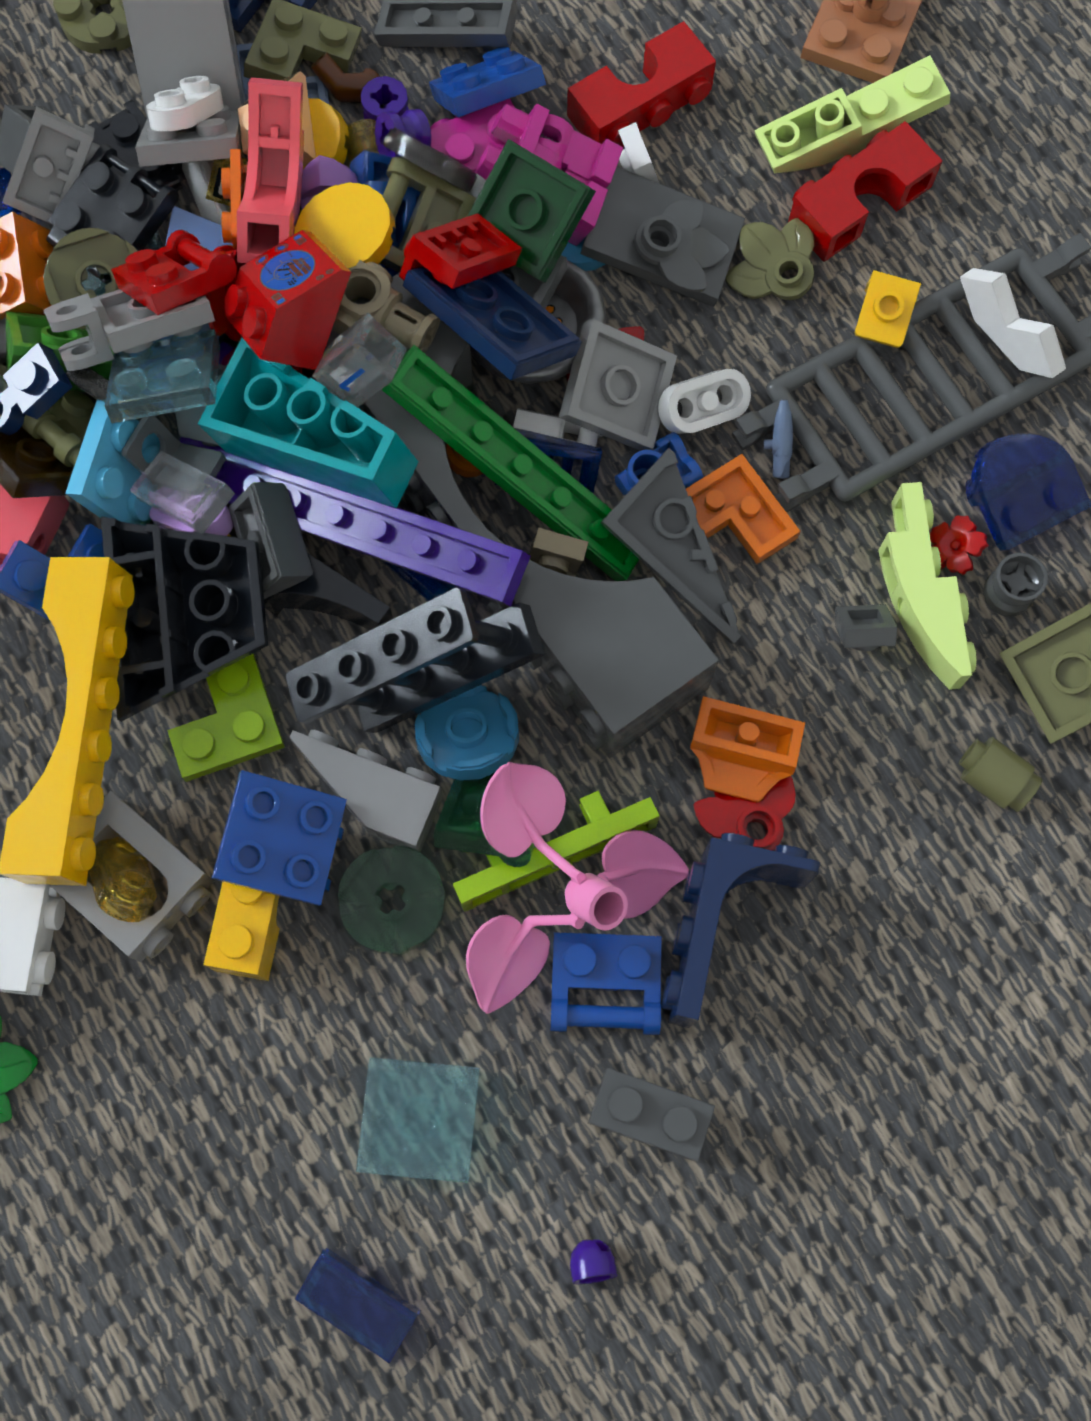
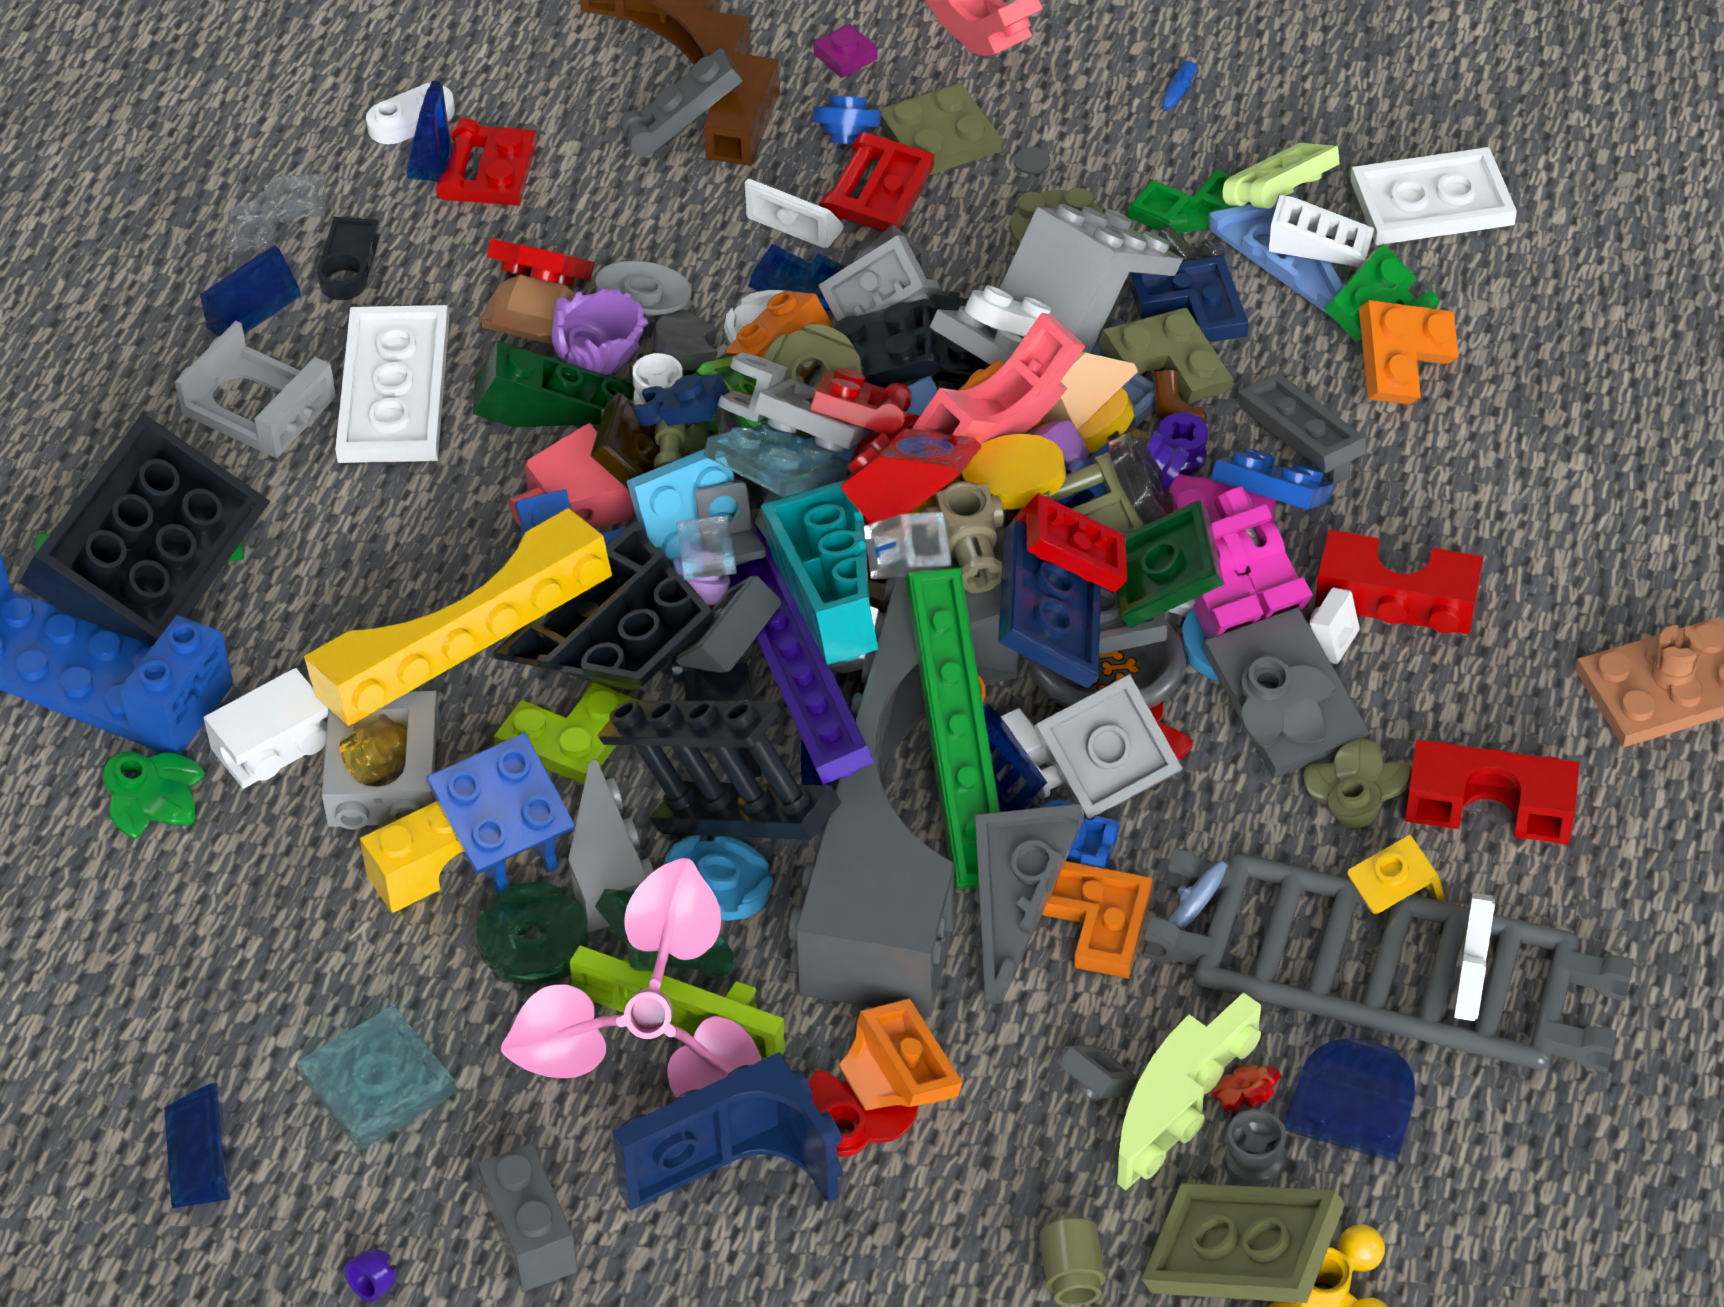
camera: 50 degrees right, 25 degrees down
(557, 551) = (922, 813): dark tan bracket -> none
(611, 965) = (609, 1098): blue plate -> none
(700, 401) = (1168, 817): white plate -> none
(846, 124) = (1531, 726): yellowish green slope -> none

